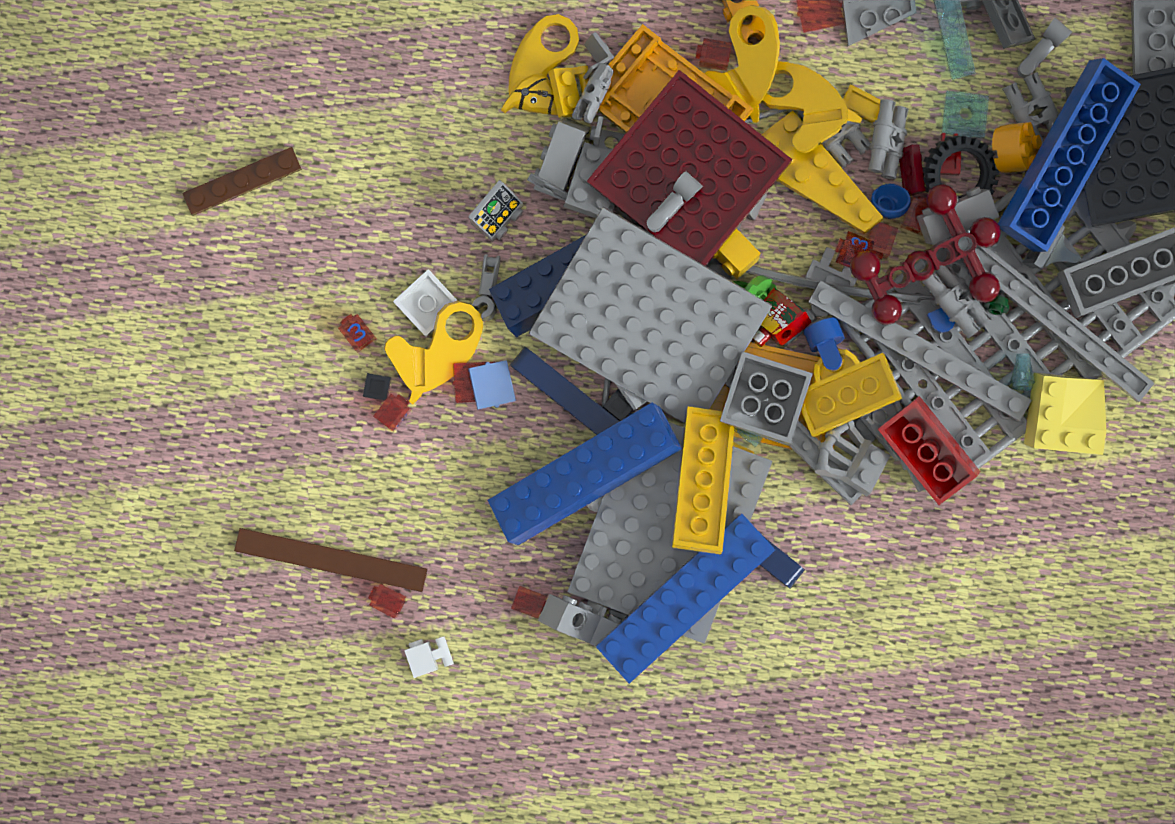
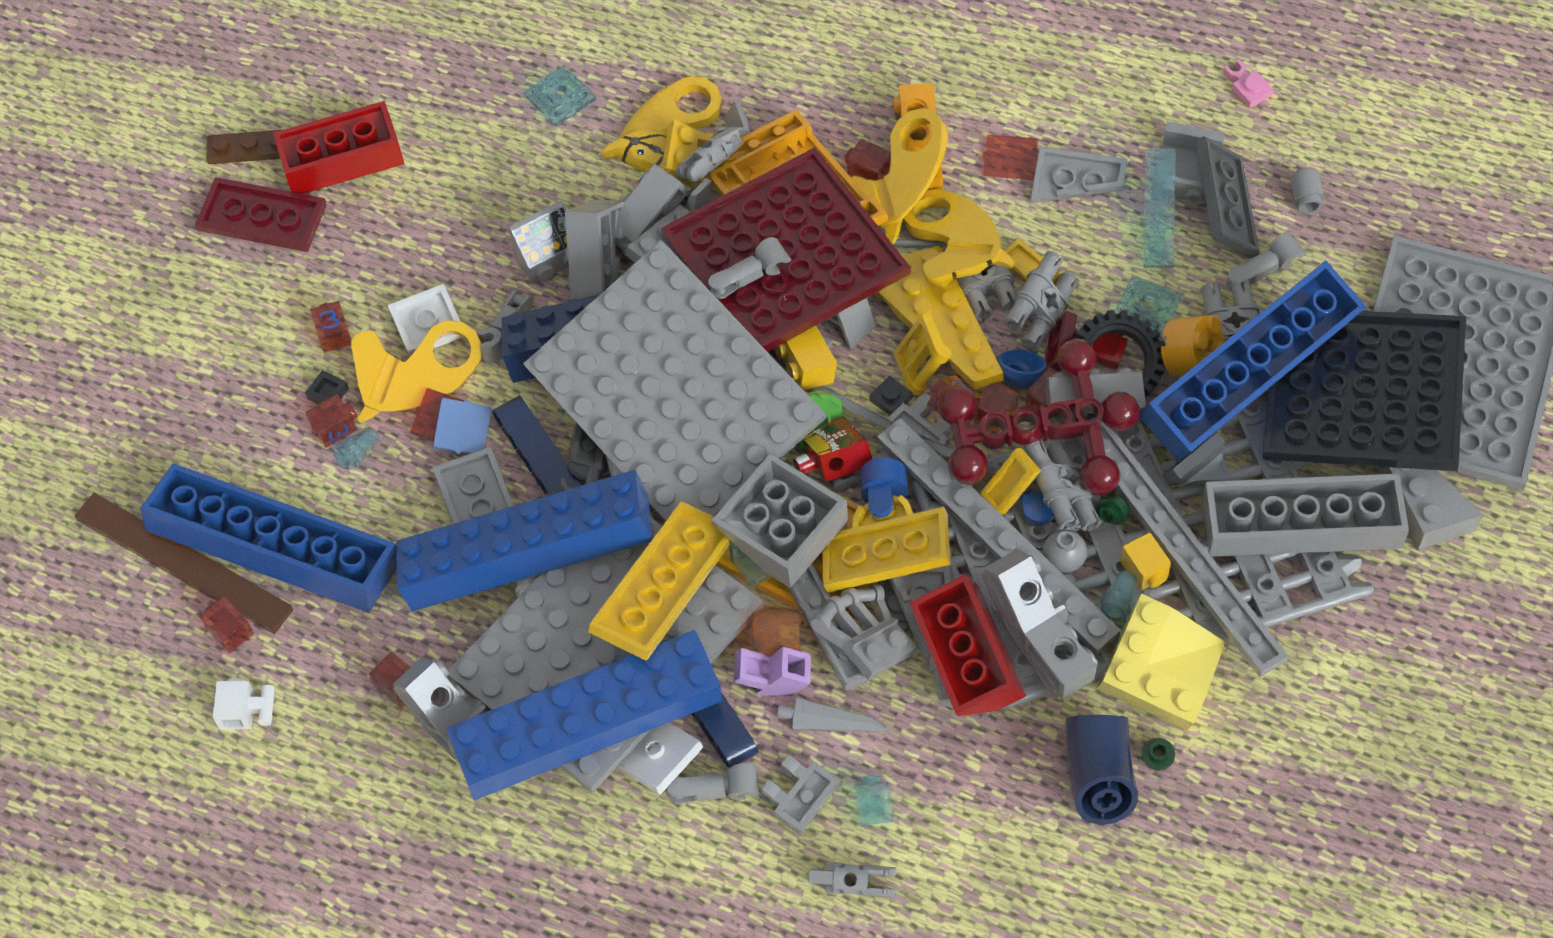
camera: 20 degrees right, 25 degrees down
(257, 251) = (261, 214): none -> dark red plate
(295, 175) = (338, 148): none -> red slope
(390, 525) = (270, 537): none -> blue brick
(420, 427) = (355, 448): none -> clear light blue cone
(451, 79) = (562, 107): none -> clear light blue piece
(526, 437) = (472, 485): none -> light grey plate
(535, 208) = (591, 246): none -> light grey wedge
(599, 392) = (584, 458): none -> dark grey plate
(742, 601) = (660, 757): none -> white plate
(788, 479) = (774, 628): none -> clear orange piece
(795, 508) = (773, 676): none -> lavender brick
(799, 253) = (890, 395): none -> black plate
(800, 598) = (740, 780): none -> light grey piece
(809, 212) = (915, 348): none -> yellow plate
(834, 527) = (817, 716): none -> light grey bar
(849, 591) = (805, 798): none -> light grey plate
(891, 642) = (836, 874): none -> light grey hinge
(896, 578) = (873, 800): none -> clear light blue bracket
(919, 310) = (1010, 481): none -> yellow tile
(971, 349) = (1065, 550): none -> light grey brick
(973, 419) = (1038, 624): none -> light grey brick
(1034, 341) = (1146, 561): none -> yellow brick
(1046, 504) = (1101, 767): none -> dark blue brick
(1072, 478) = (1155, 762): none -> dark green plate

